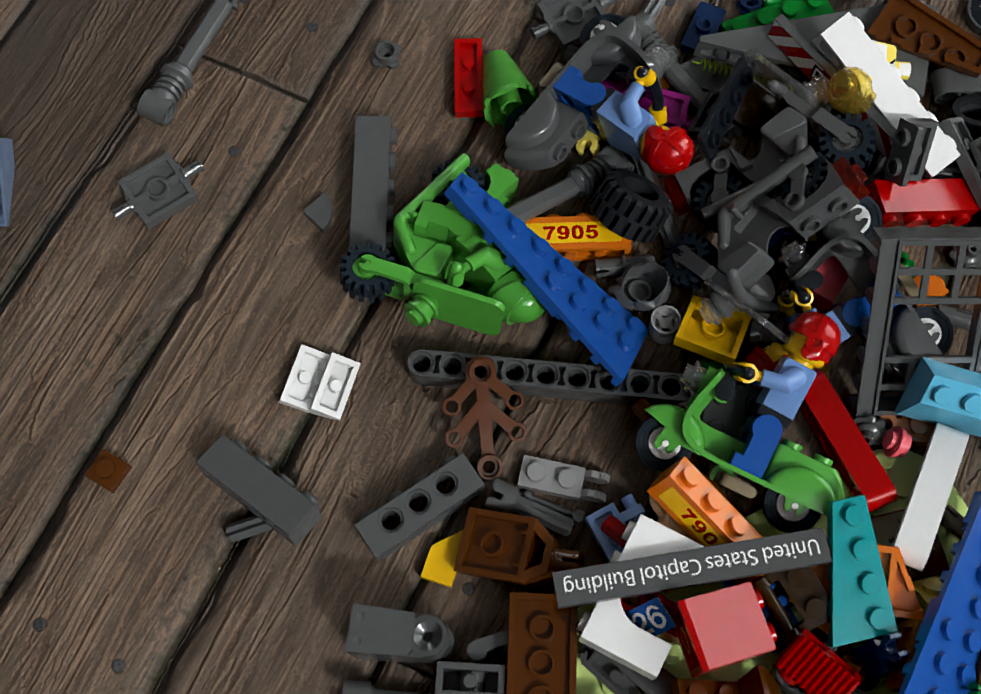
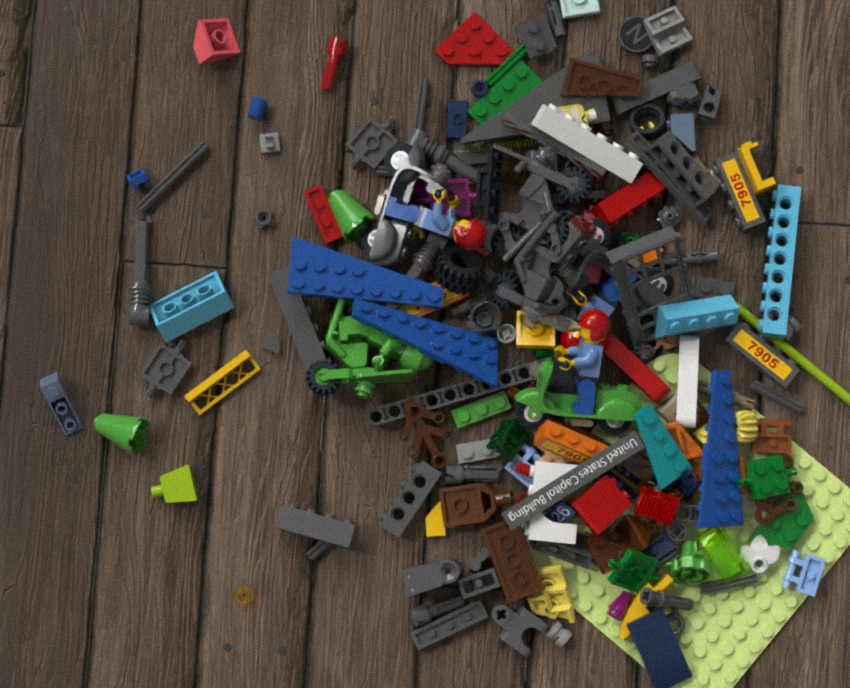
camera: 25 degrees left, 15 degrees up
(57, 247) = (123, 430): none -> bright green cone
(89, 351) = (177, 486): none -> lime torso
(94, 551) = (244, 600): none -> clear yellow plate
(108, 471) = (223, 549): reddish brown plate -> none
(221, 227) = (217, 377): none -> yellow fence
(232, 126) = (191, 306): none -> medium azure slope
(320, 383) = (320, 449): white slope -> none
(448, 141) = (334, 275): none -> blue wing
(583, 419) = (481, 409): none -> bright green plate
(609, 475) = (508, 439): none -> dark green bracket
(850, 91) = (564, 154): clear yellow hair -> none
(896, 442) = (661, 354): coral plate -> none
(910, 150) = (612, 178): dark grey bracket -> none

